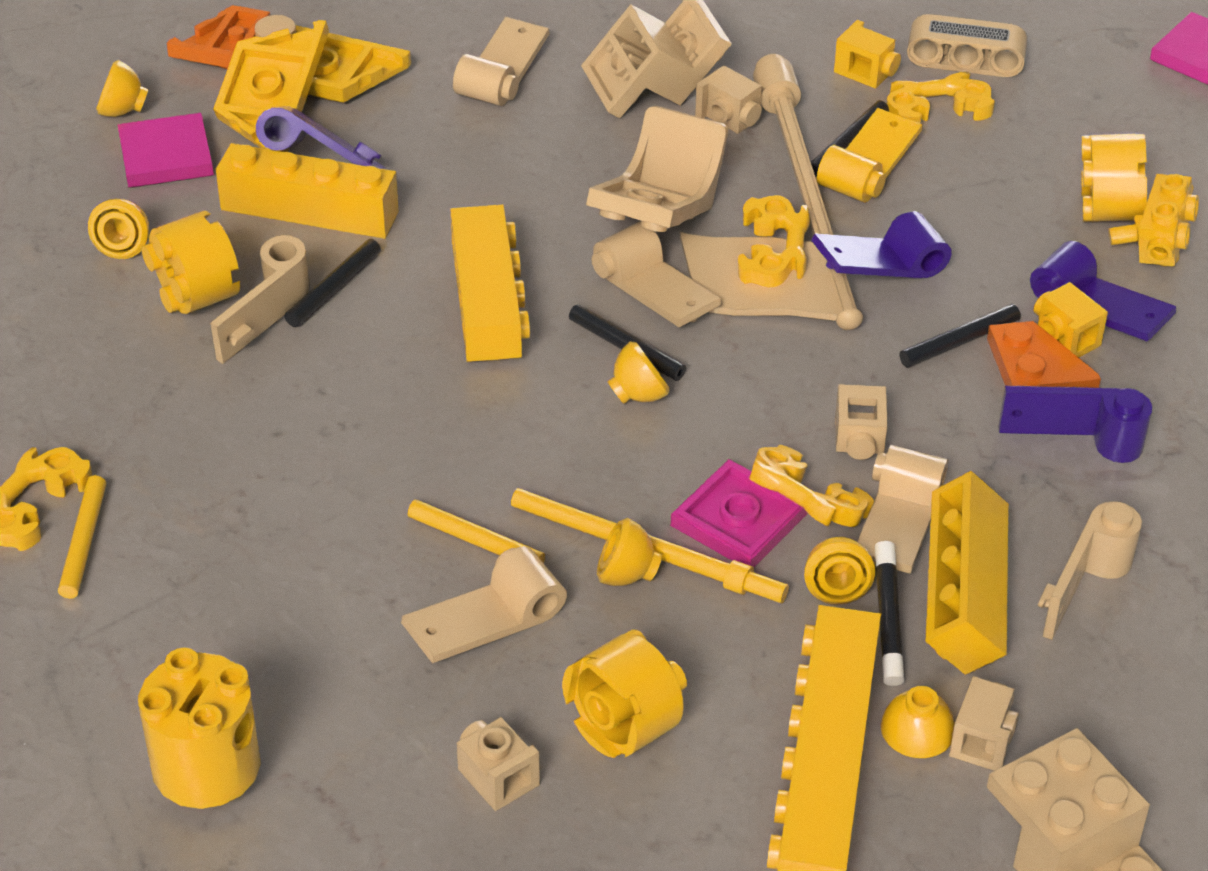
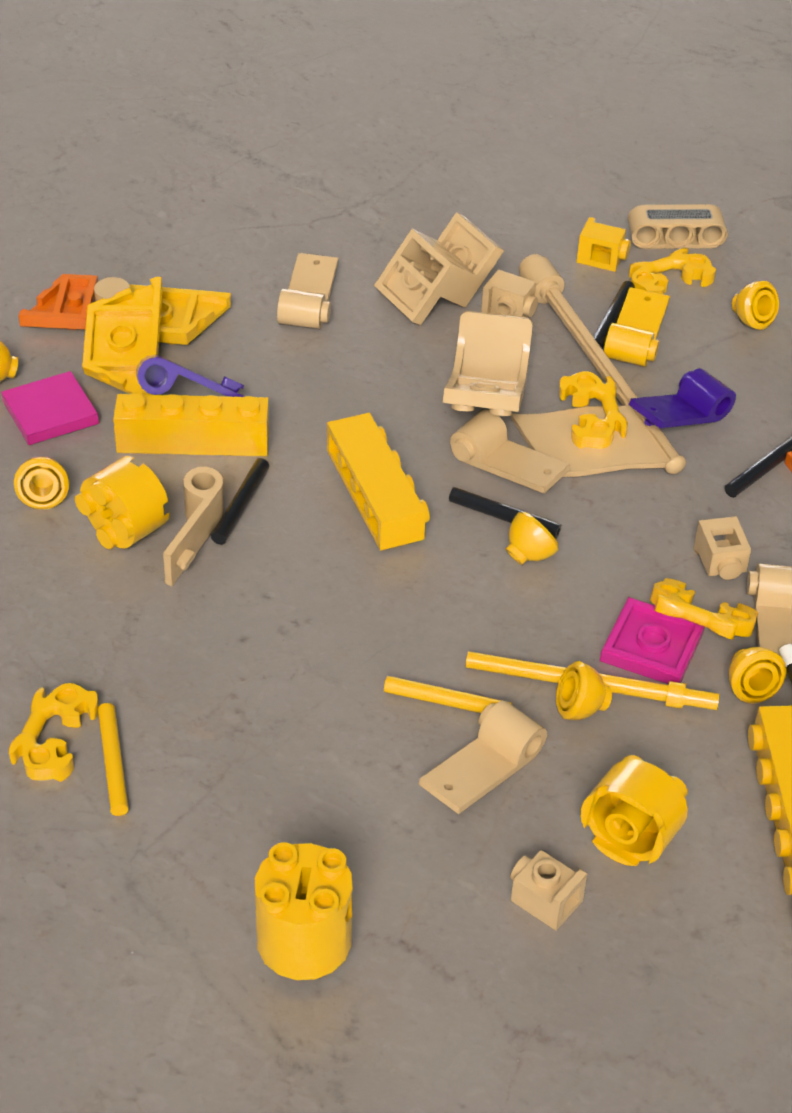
camera: 15 degrees left, 0 degrees up
(1025, 149) = (757, 304): none -> yellow brick

